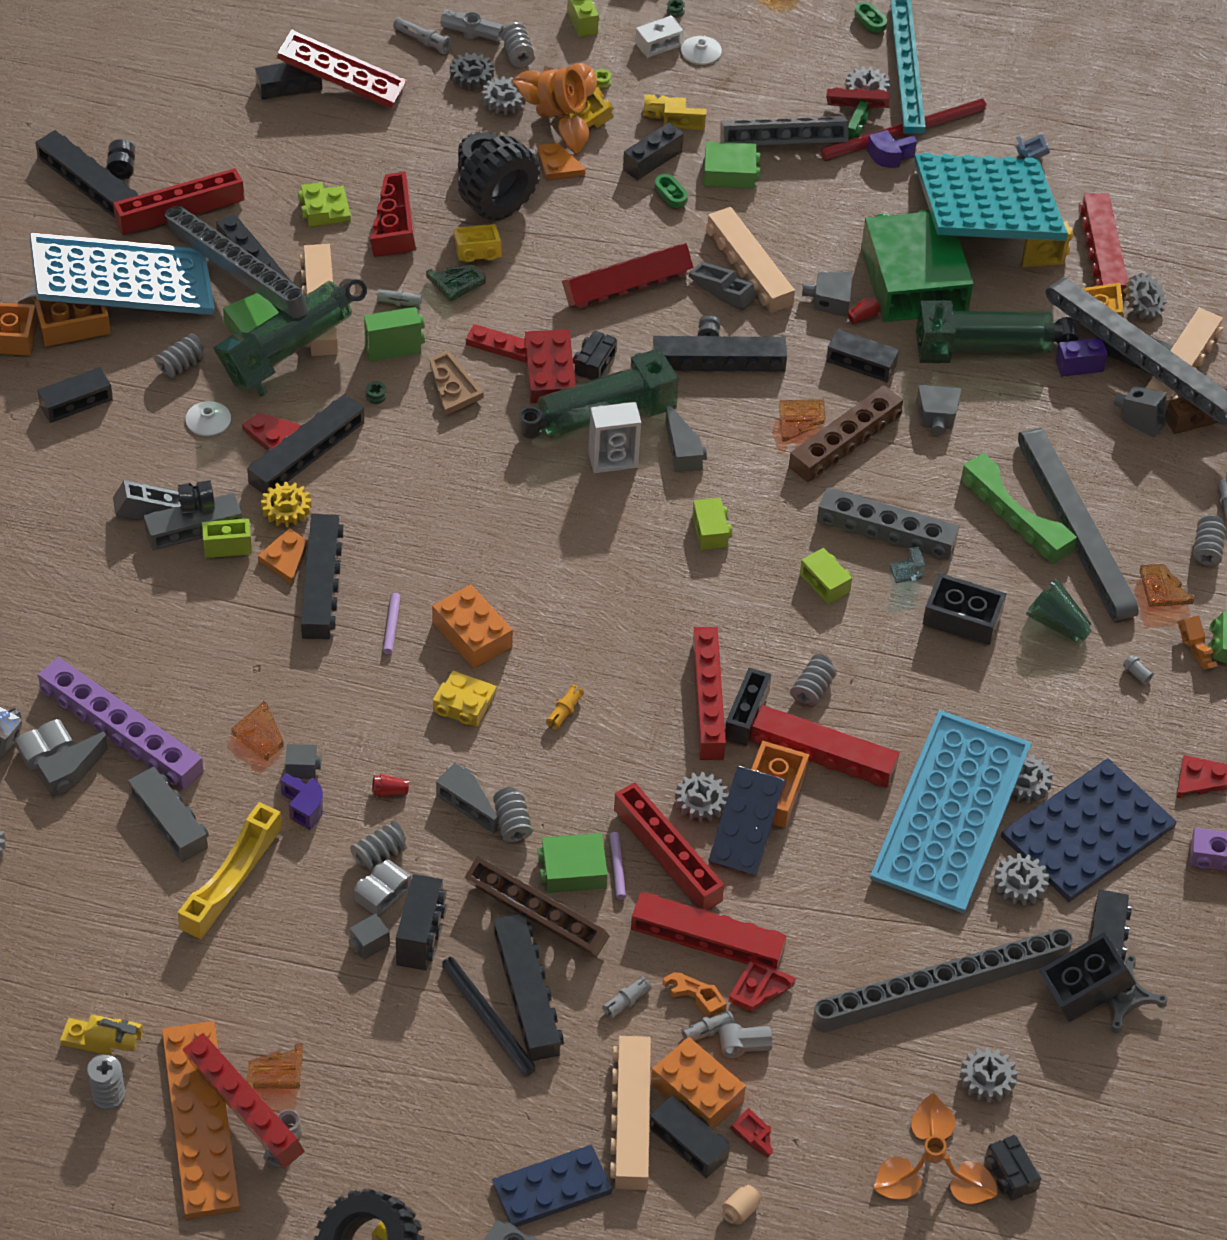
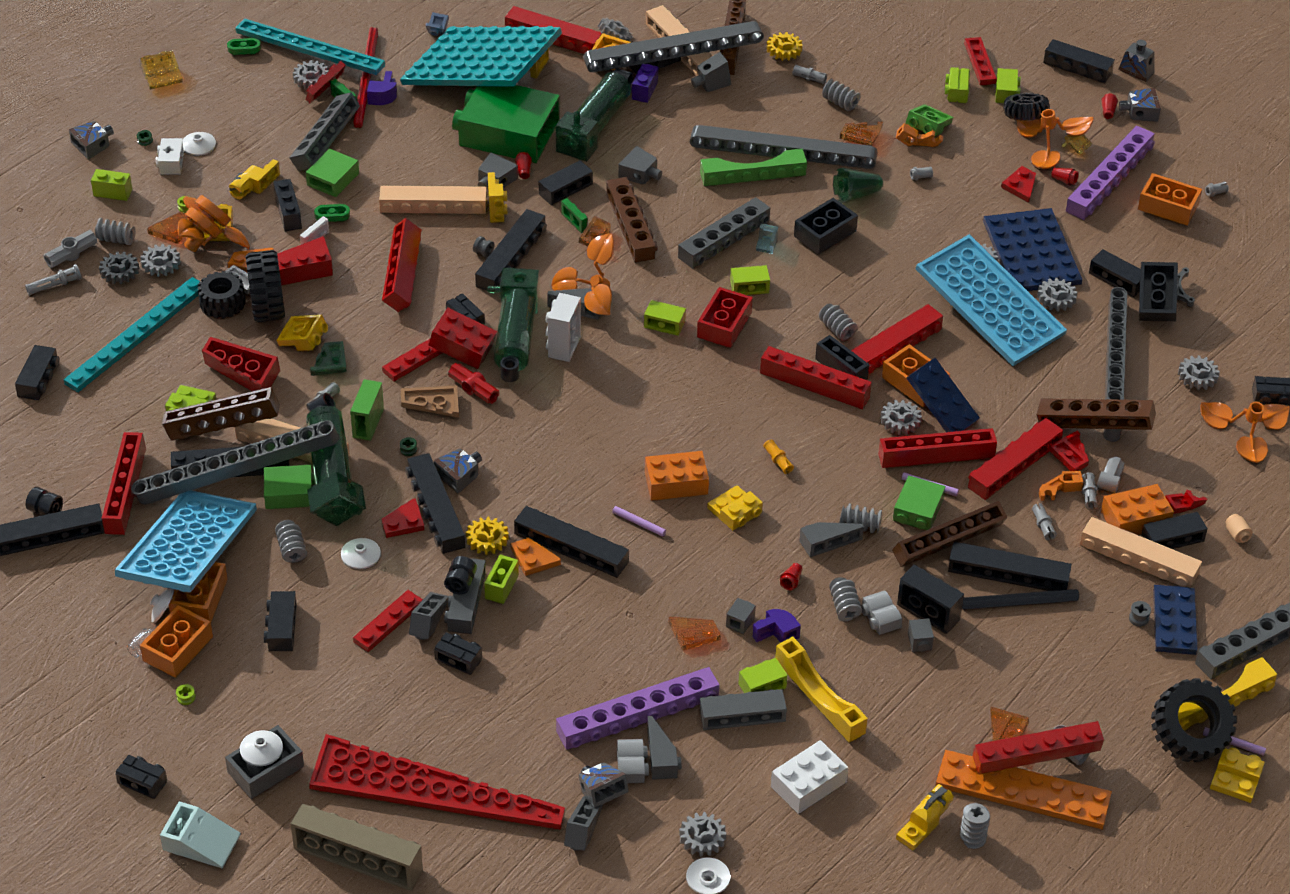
camera: 60 degrees left, 5 degrees down
(103, 907) = (809, 776): none -> white brick
(111, 547) = (458, 653): none -> black brick
(115, 473) = (387, 621): none -> red plate
(220, 814) = (763, 677): none -> lime brick
(302, 225) = (221, 414): none -> reddish brown brick
(341, 69) = (62, 334): plate -> none
(365, 443) = (458, 468): none -> dark grey torso
(384, 123) = (132, 336): none -> teal plate
(498, 405) = (473, 383): none -> red piece
(530, 1149) = (1140, 613): none -> dark grey wheel
(575, 197) = (305, 262): none -> red wedge
(628, 190) = (315, 231): none -> plate
(720, 443) = (600, 297): none -> orange plant
(723, 284) = (445, 222): dark grey slope -> none
(743, 573) = (724, 317): none -> red brick
(781, 303) = (496, 199): none -> yellow plate
(817, 380) = (574, 215): none -> green plate
(821, 982) = (1098, 413): none -> reddish brown brick

